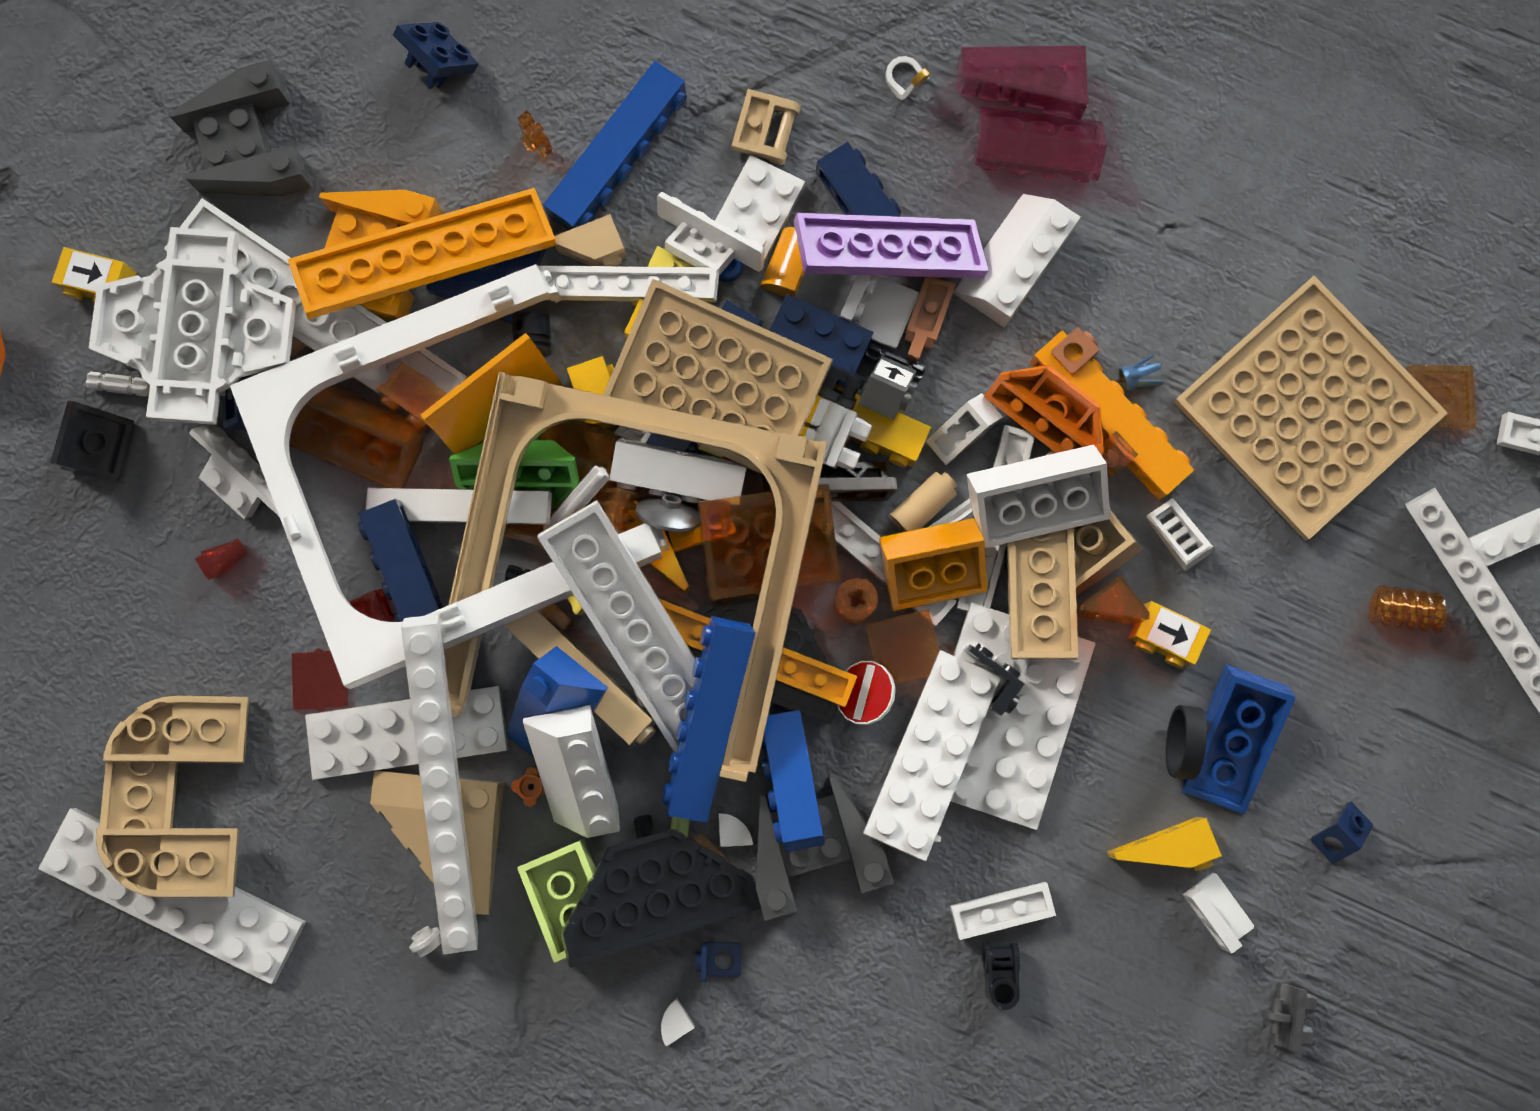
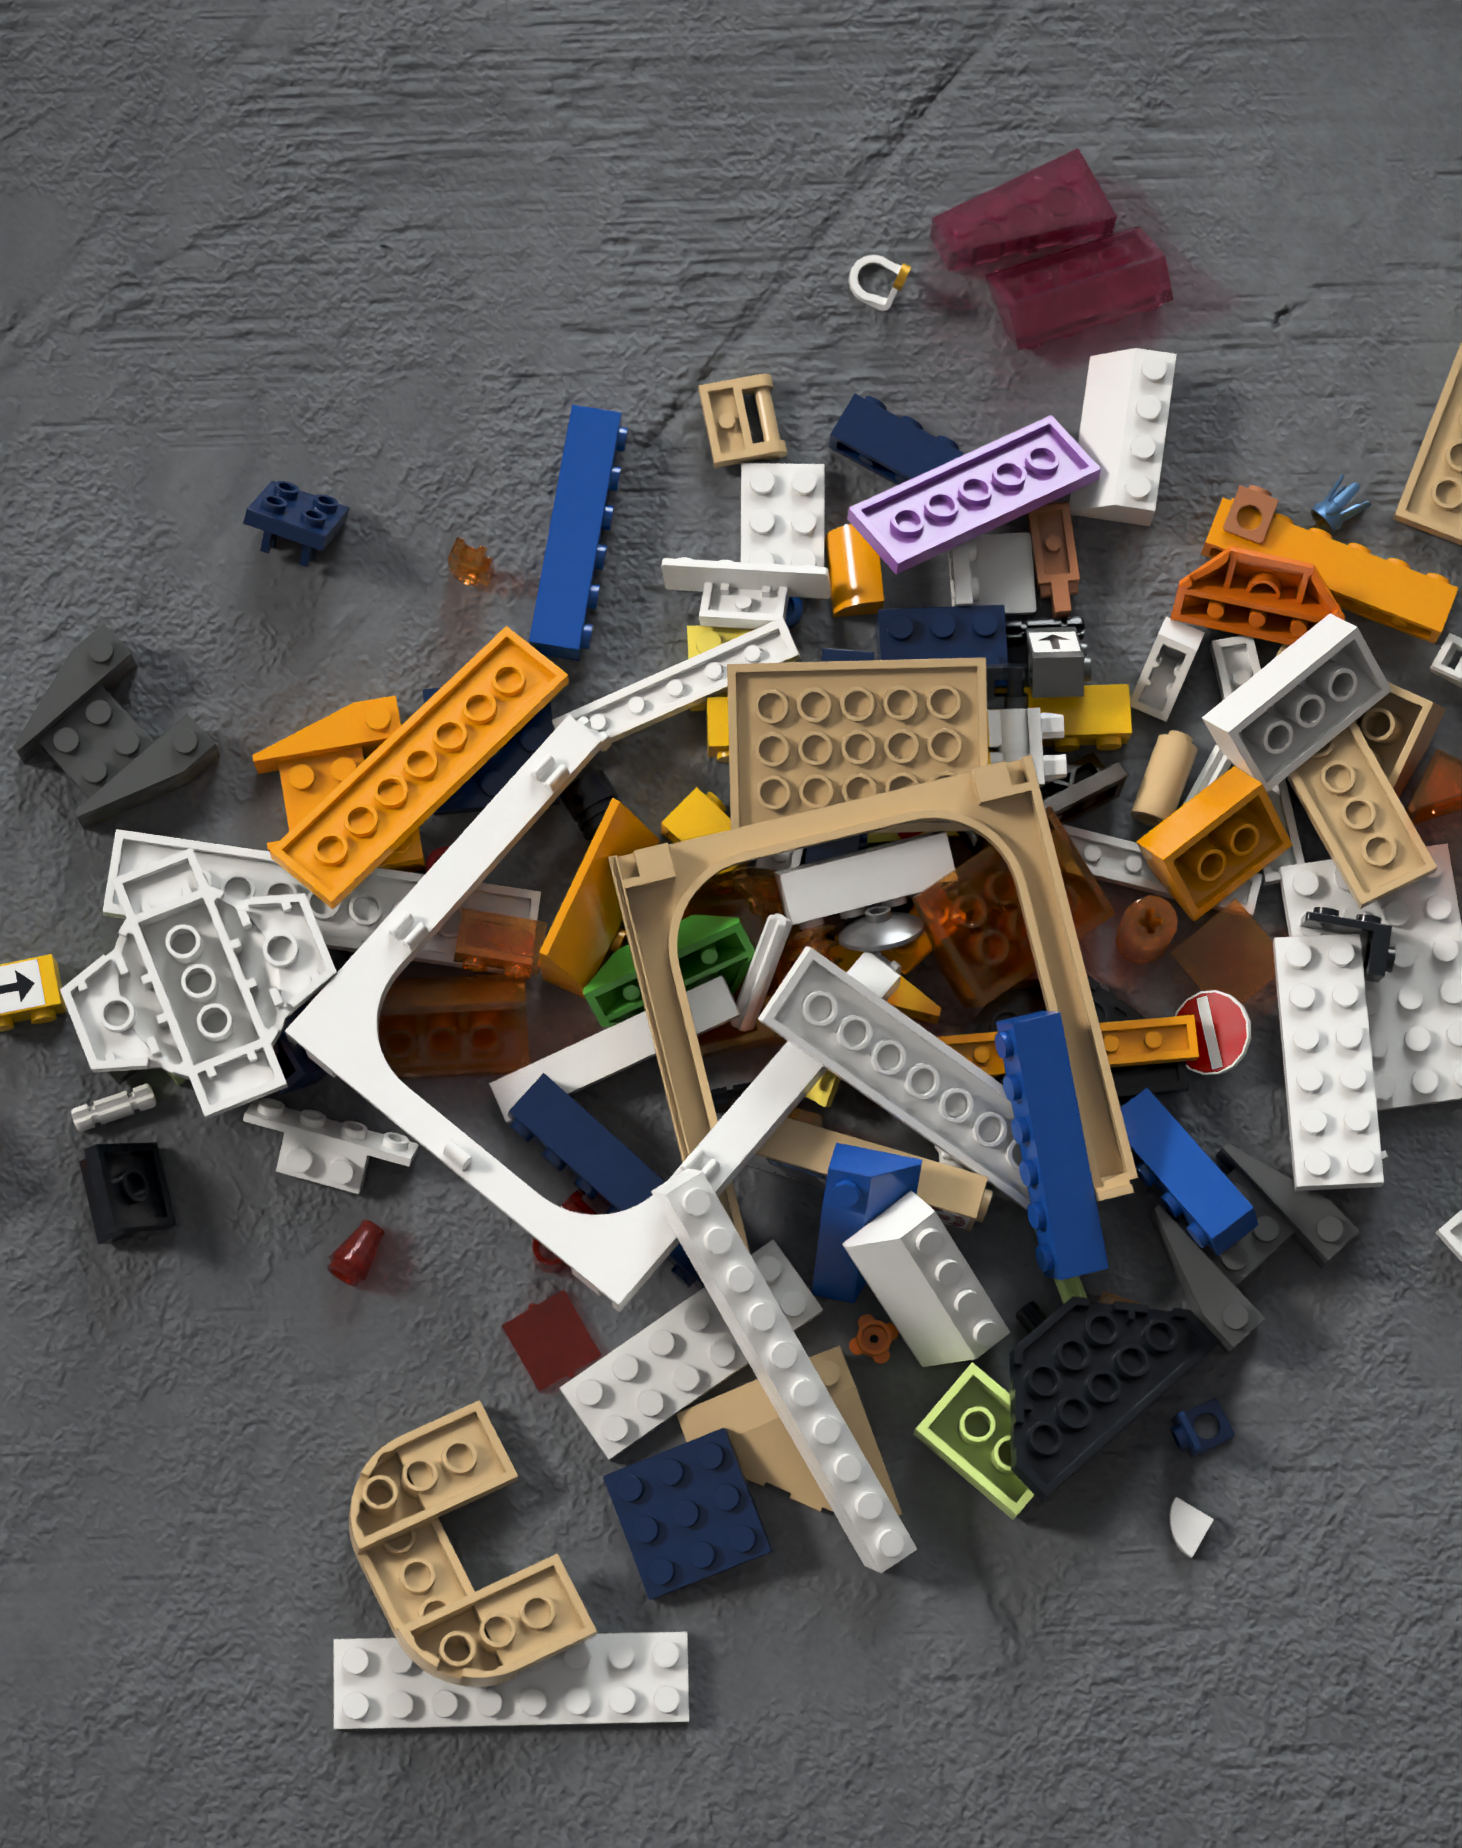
camera: 30 degrees left, 5 degrees down
(344, 843) = (688, 1514): none -> dark blue plate
(425, 941) = (846, 1578): white plate -> none
(593, 243) = (611, 659): tan slope -> none
(733, 831) = (1139, 1272): white tile -> none
(1117, 453) = (1361, 610): clear orange plate -> none

